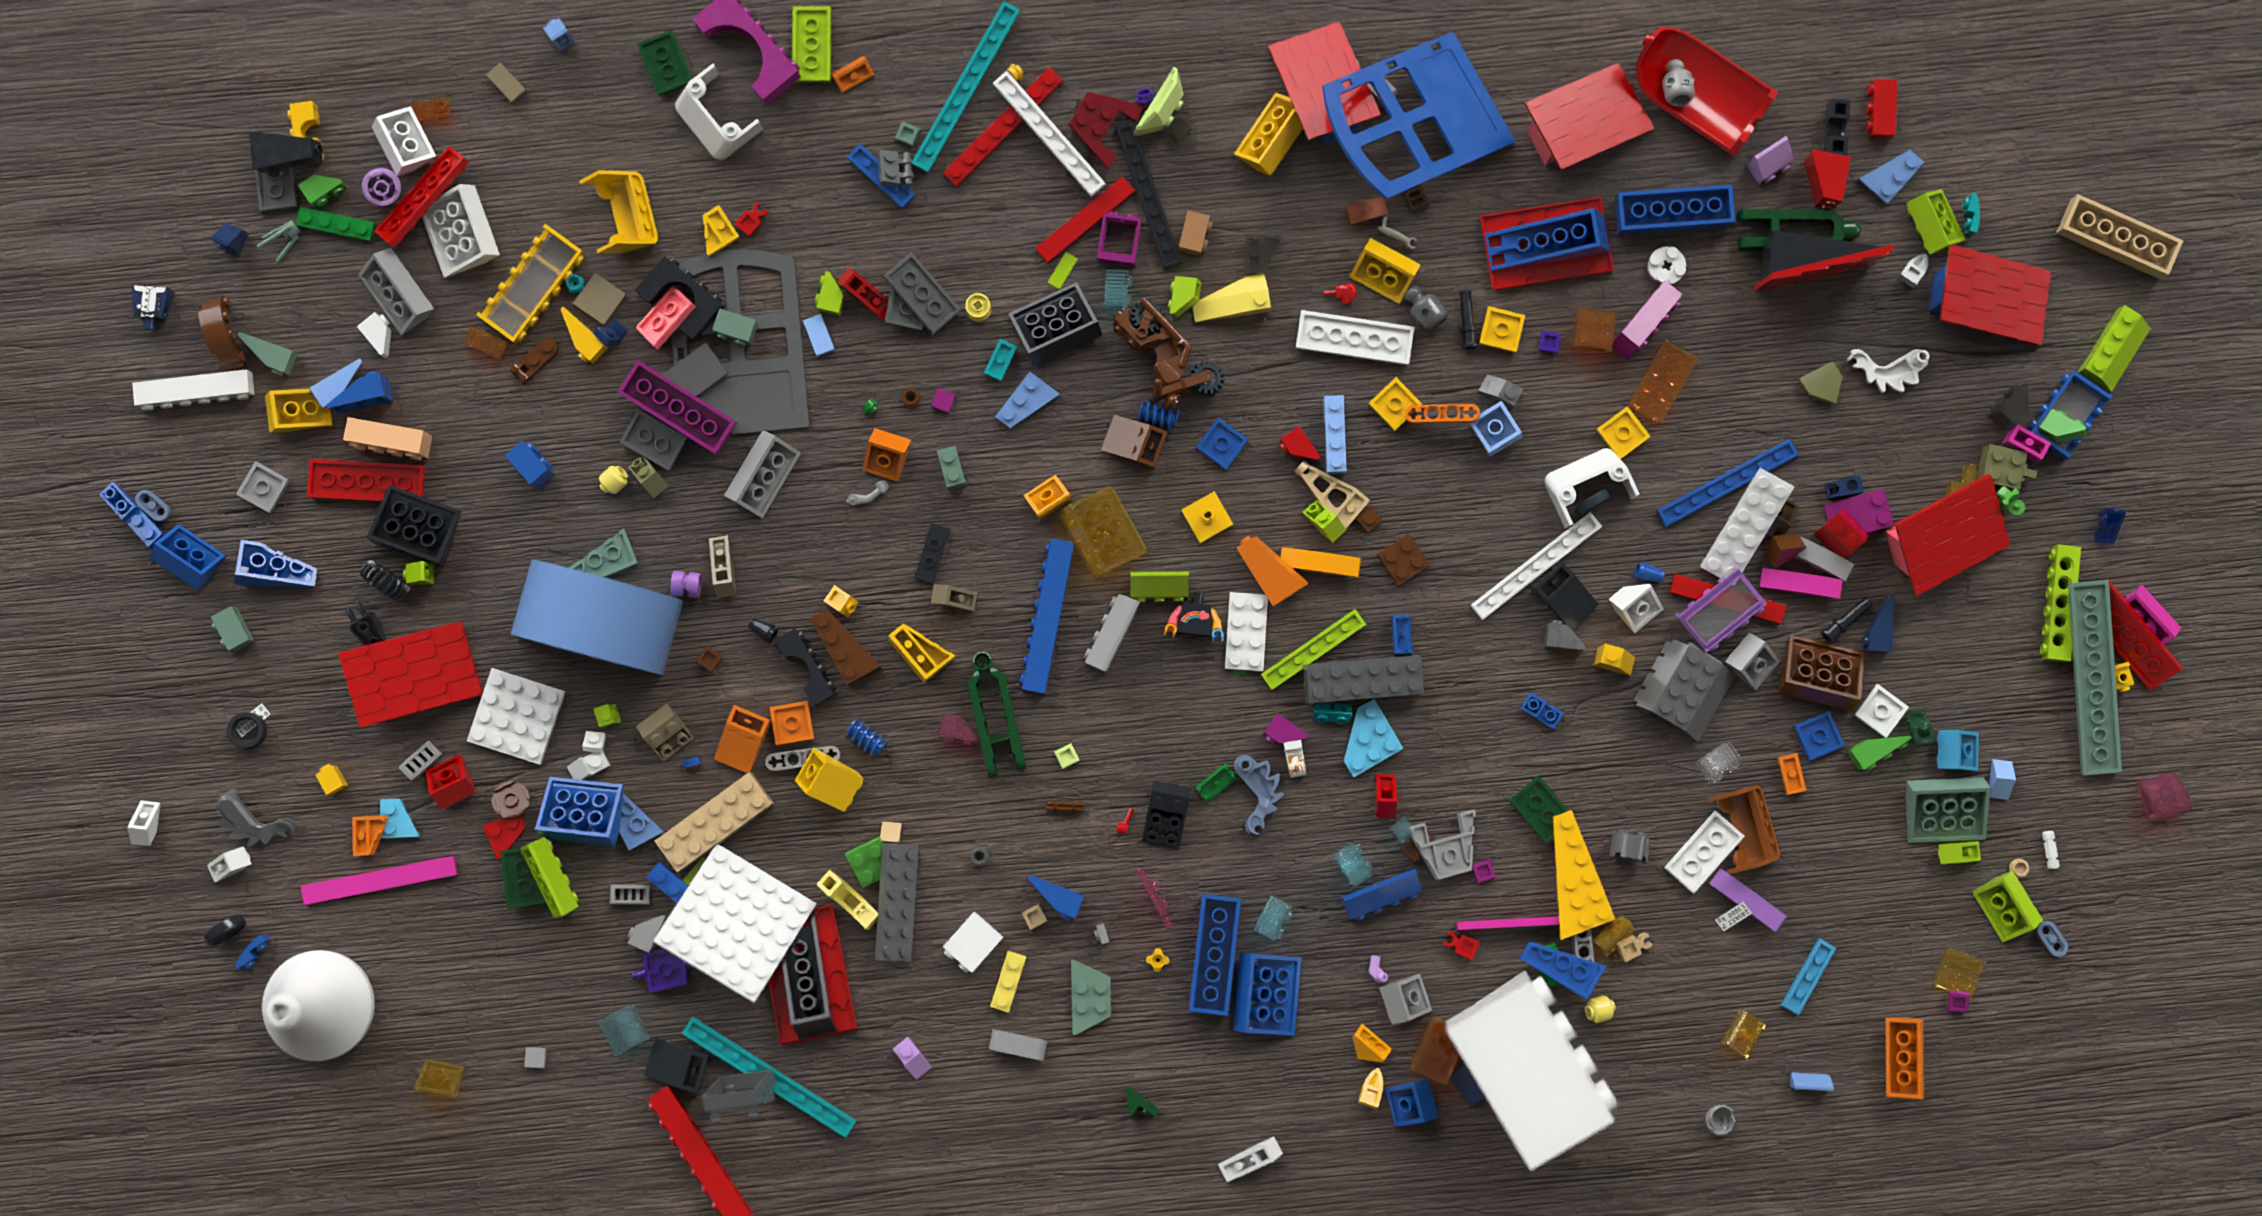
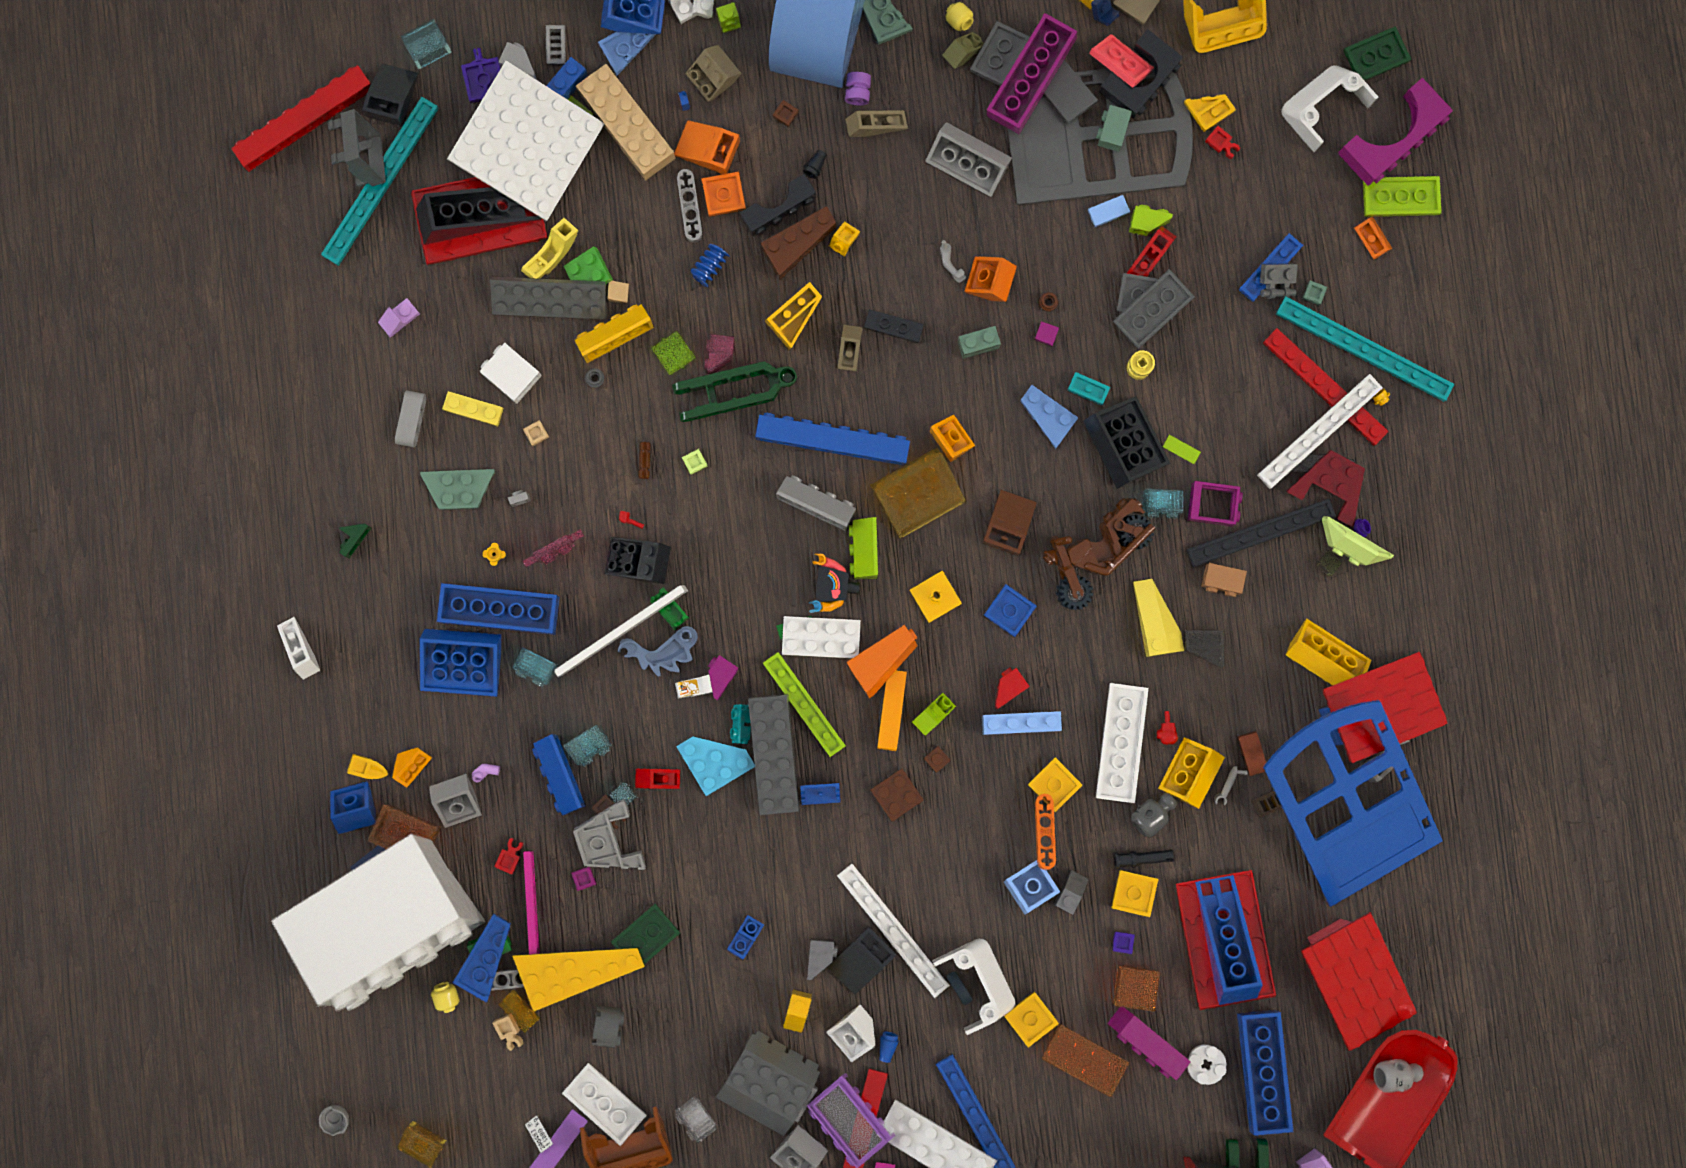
camera: 85 degrees right, 0 degrees up
(829, 780) = (666, 229): yellow slope -> none
(870, 407) = (1038, 262): green plate -> none
(934, 836) = (613, 333): none -> yellow slope
(954, 776) = (673, 353): none -> clear neon green piece
(1061, 899) = (553, 454): blue slope -> none
(1085, 219) = (1233, 470): red tile -> none
(1158, 416) = (1035, 545): blue piece -> none
(1184, 296) = (1160, 570): lime slope -> none
(1238, 830) = (621, 630): none -> white tile
(1349, 508) = (946, 739): tan plate -> none

